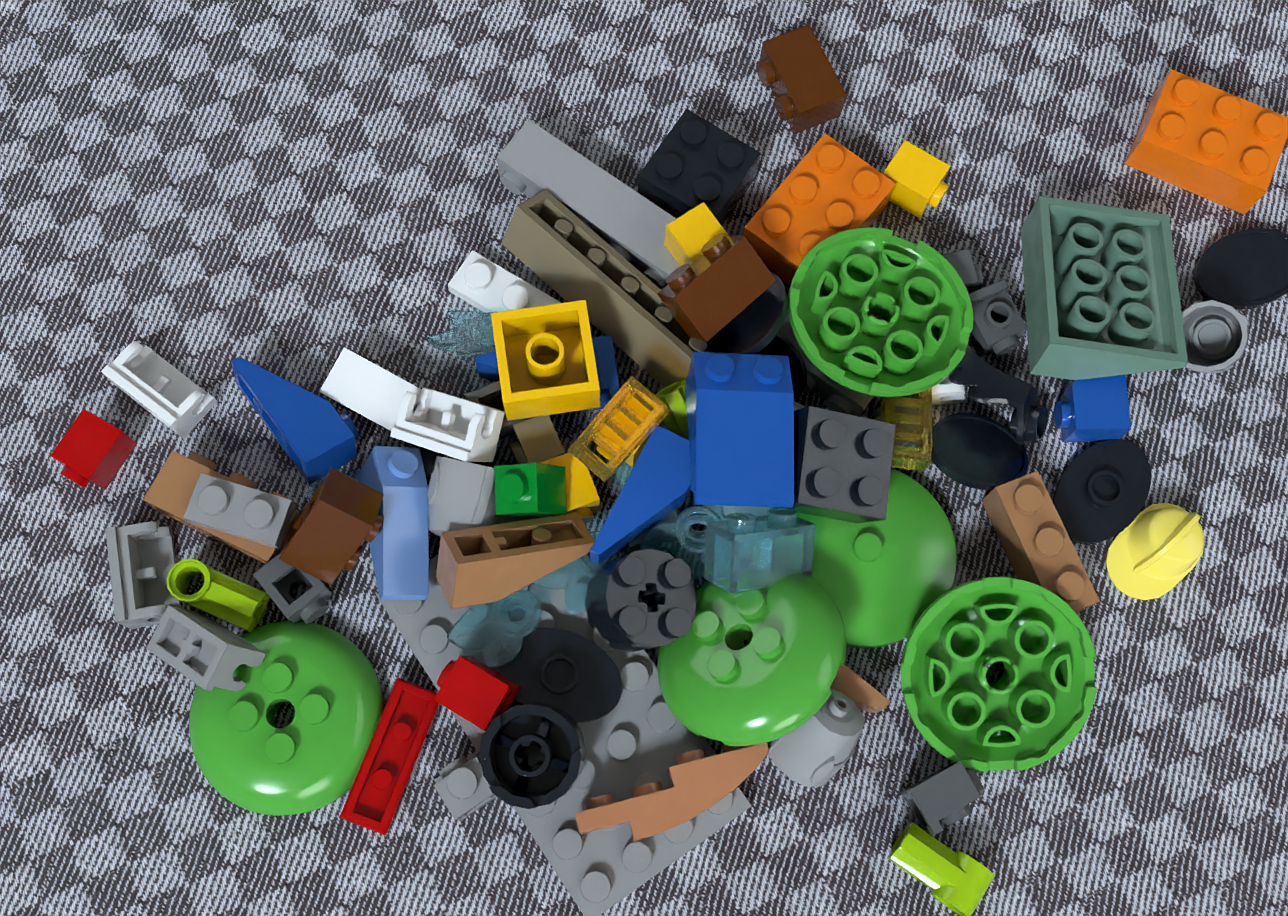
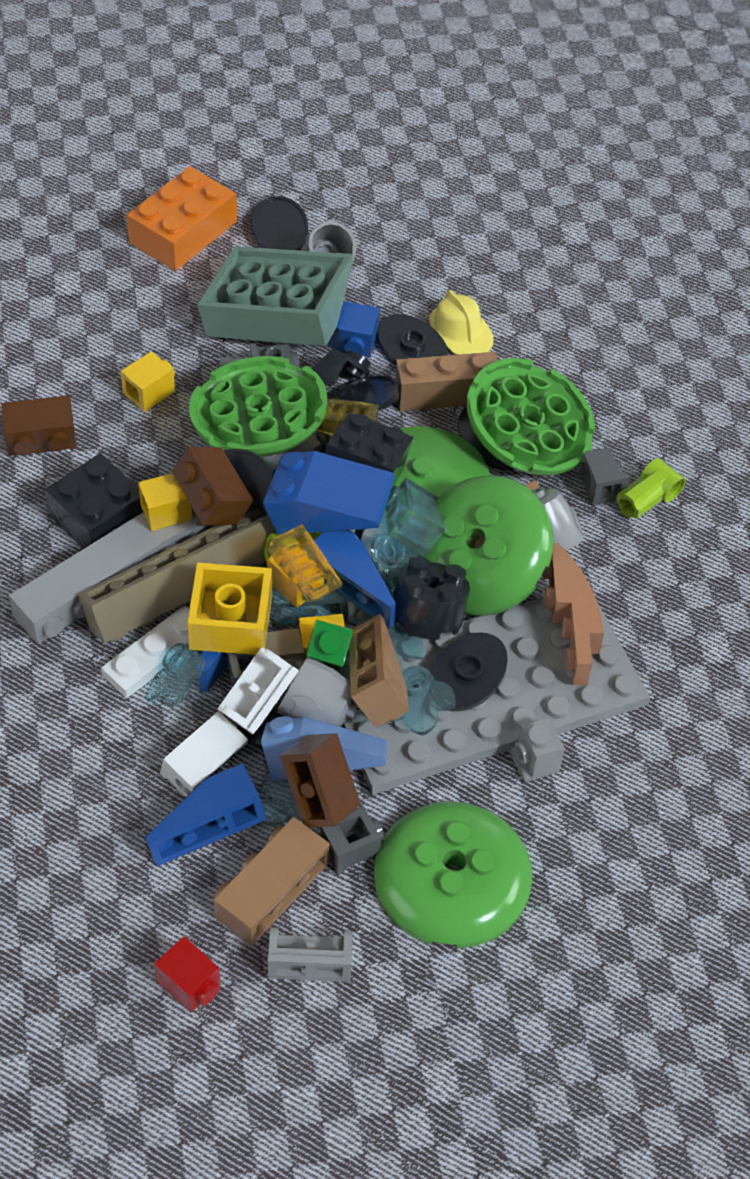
camera: 75 degrees left, 20 degrees down
(159, 388) = (148, 919): white hinge -> none
(202, 649) = (390, 903): light grey hinge -> none
(220, 594) = (344, 897): lime piece -> none
(239, 510) = (284, 852): light grey plate -> none
(390, 757) = (524, 814): red tile -> none
(475, 691) = (472, 715): red brick -> none
(505, 764) = (528, 682): black brick -> none
(819, 198) = (148, 432): orange brick -> none

